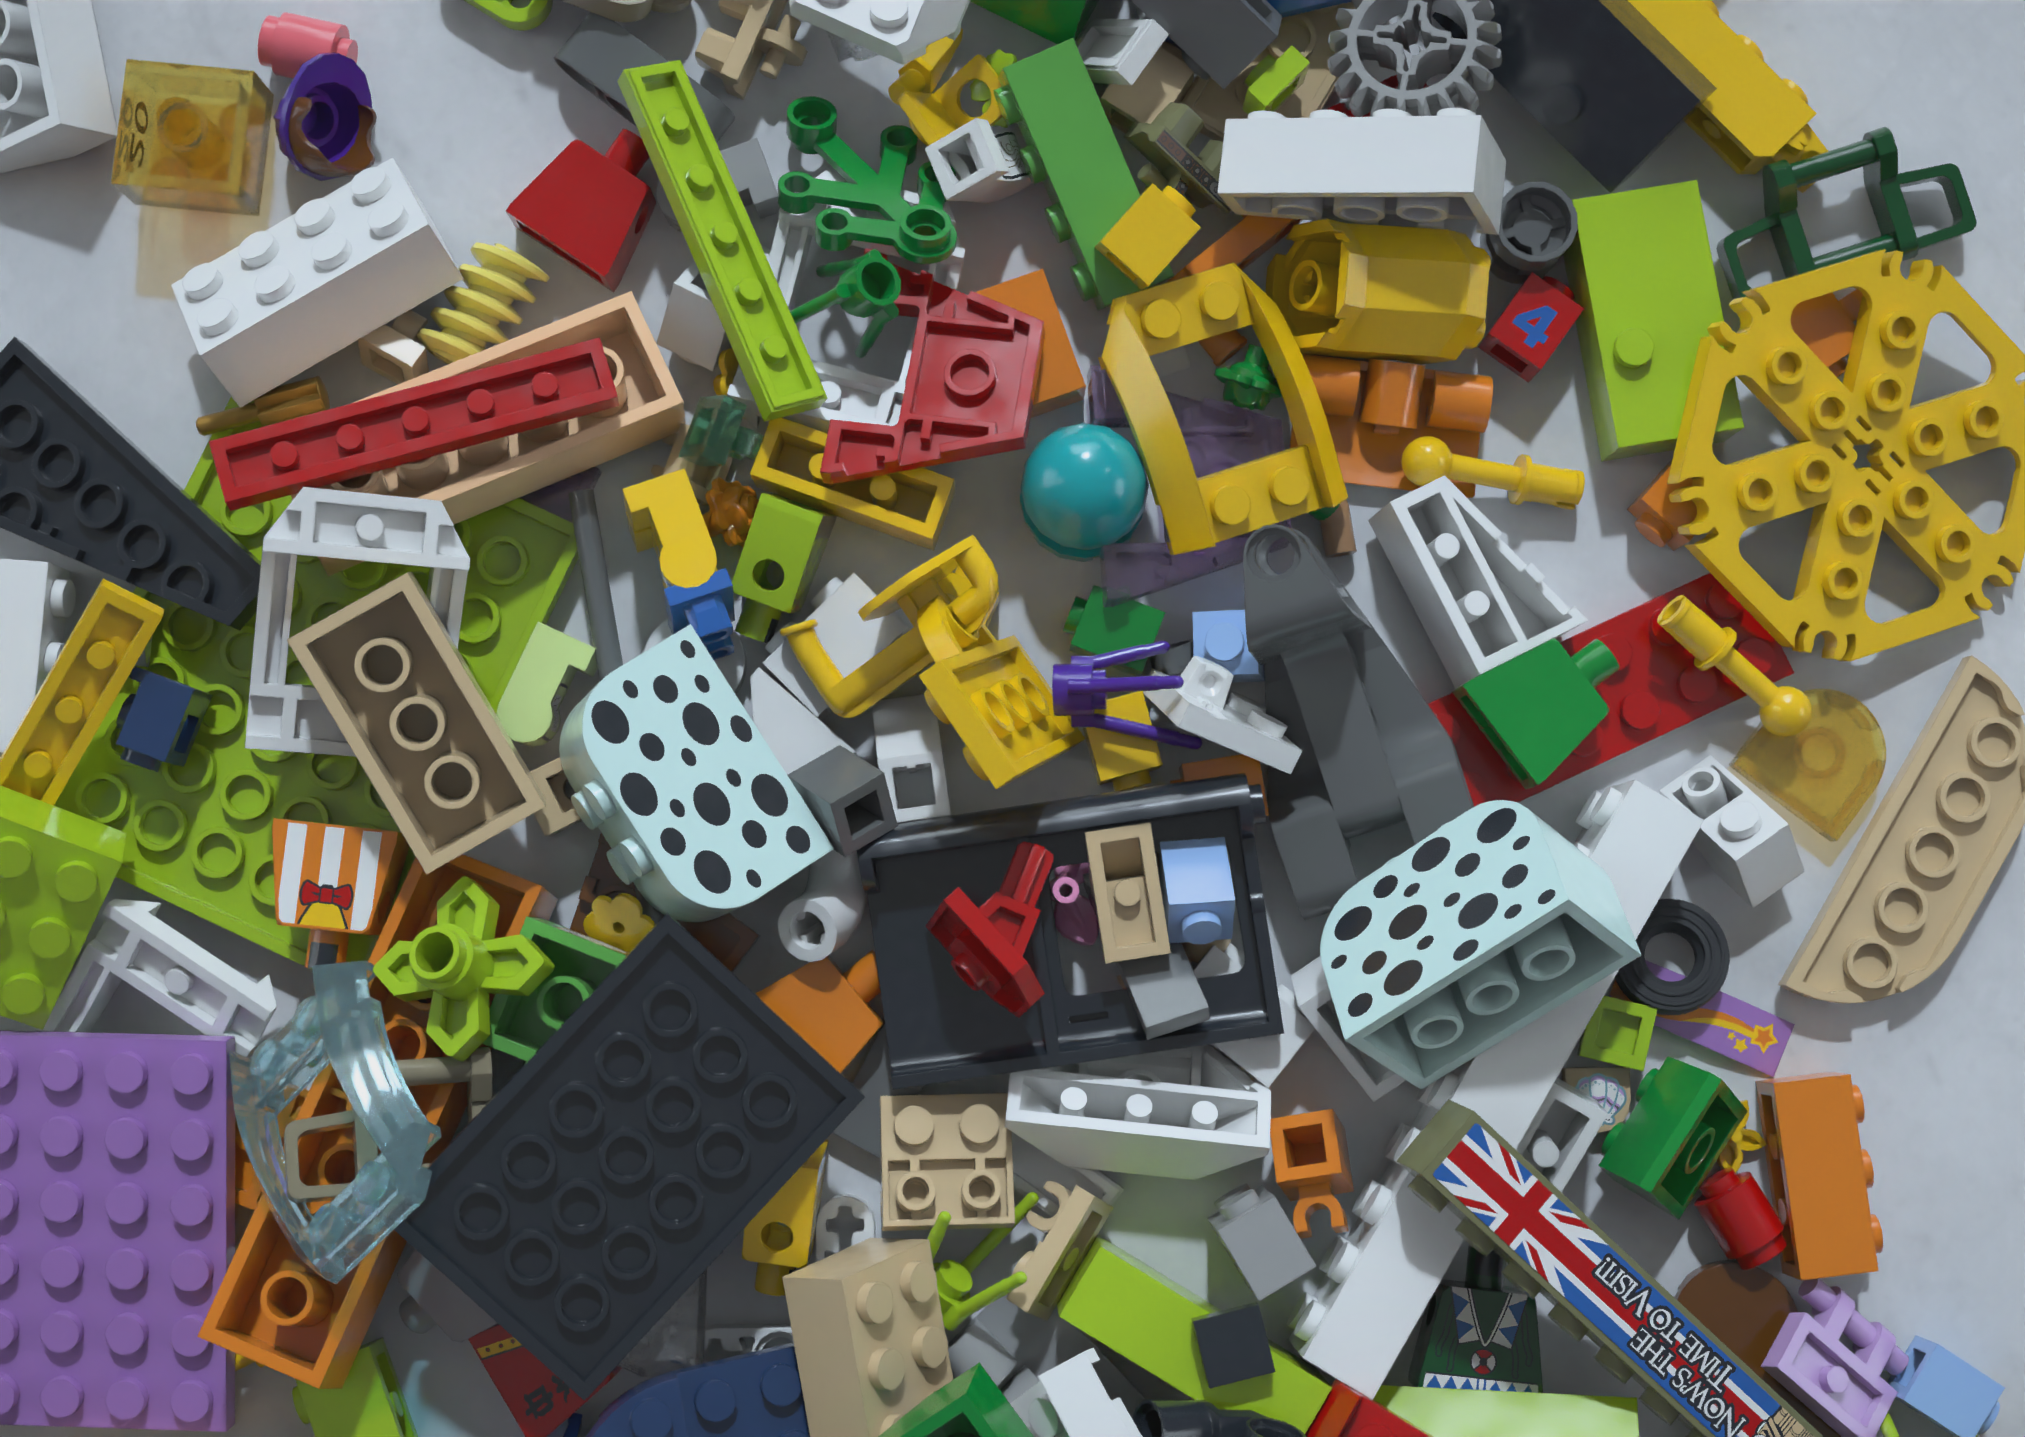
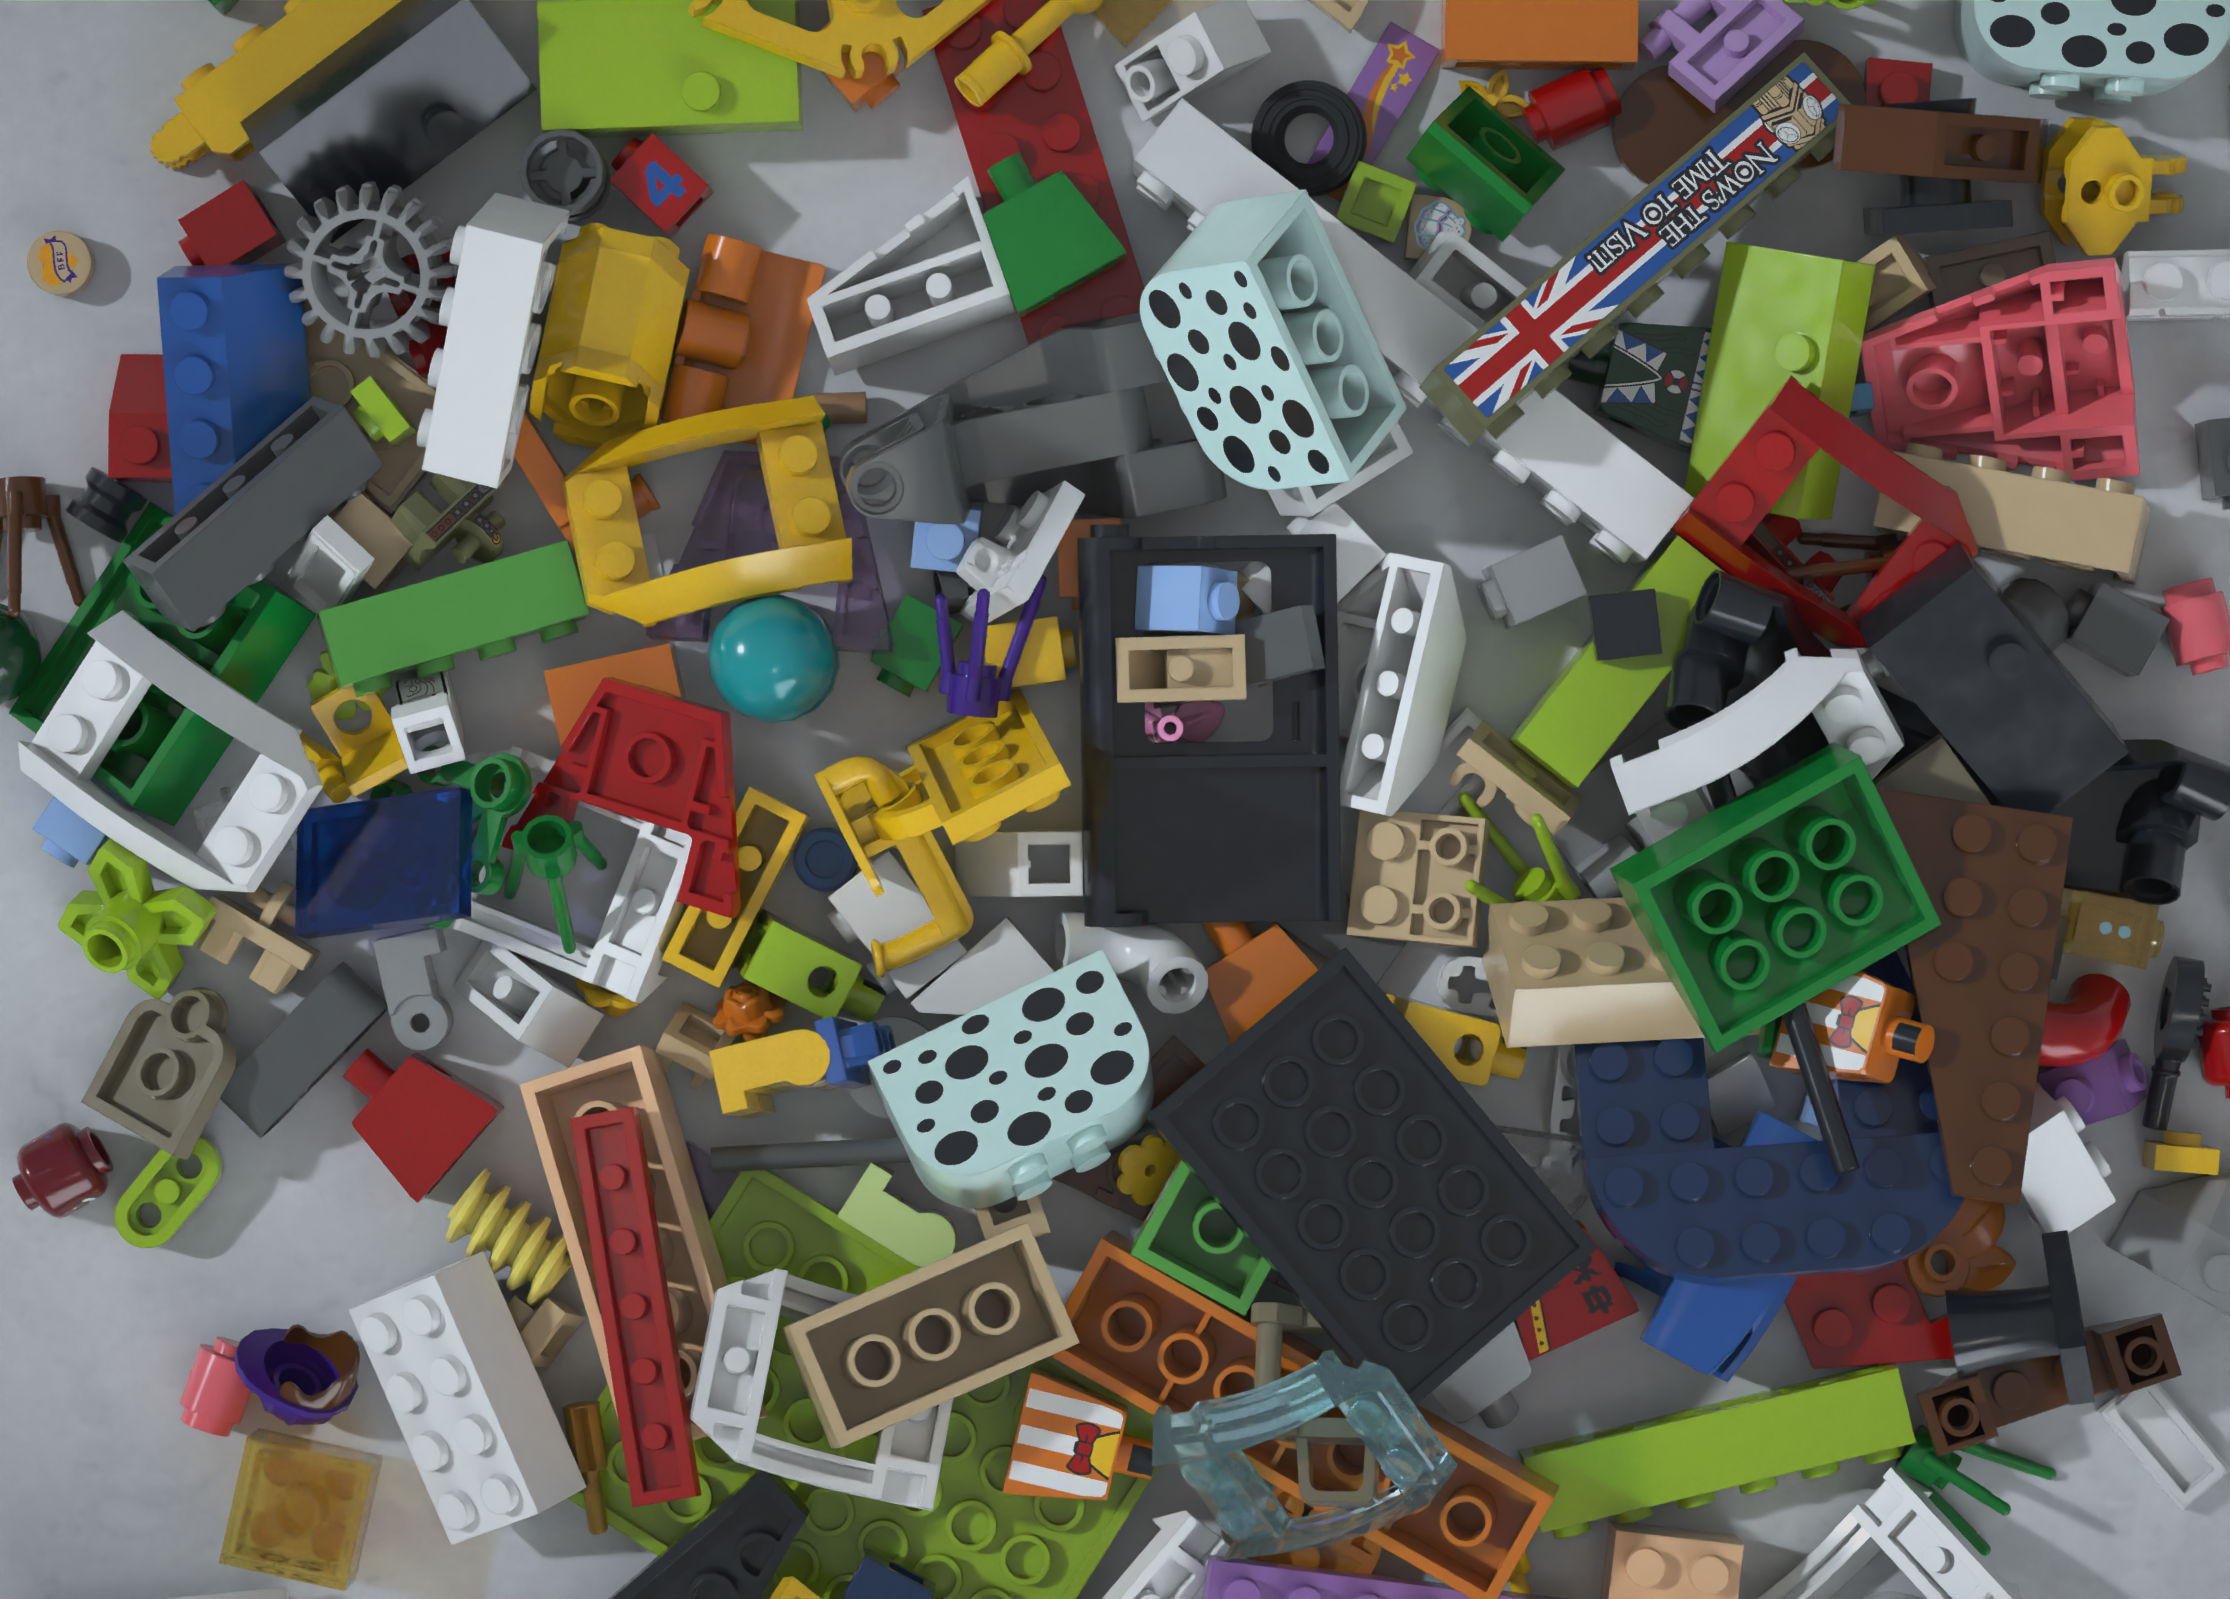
camera: 80 degrees left, 5 degrees up
(460, 966) = (1173, 1320): lime plant -> none
(717, 433) = (674, 1015): clear green tile -> none
(722, 240) = (478, 988): lime tile -> none
(834, 137) = (384, 863): none -> clear blue tile
(846, 798) = (1054, 931): dark grey brick -> none
(887, 562) = (824, 859): none -> blue tile
(993, 938) = (1209, 805): red piece -> none
(1149, 234) = (528, 560): yellow brick -> none
(1249, 382) = (681, 477): green plant -> none
(1312, 1166) = (1467, 521): orange brick -> none
(1431, 459) = (786, 306): yellow pin -> none

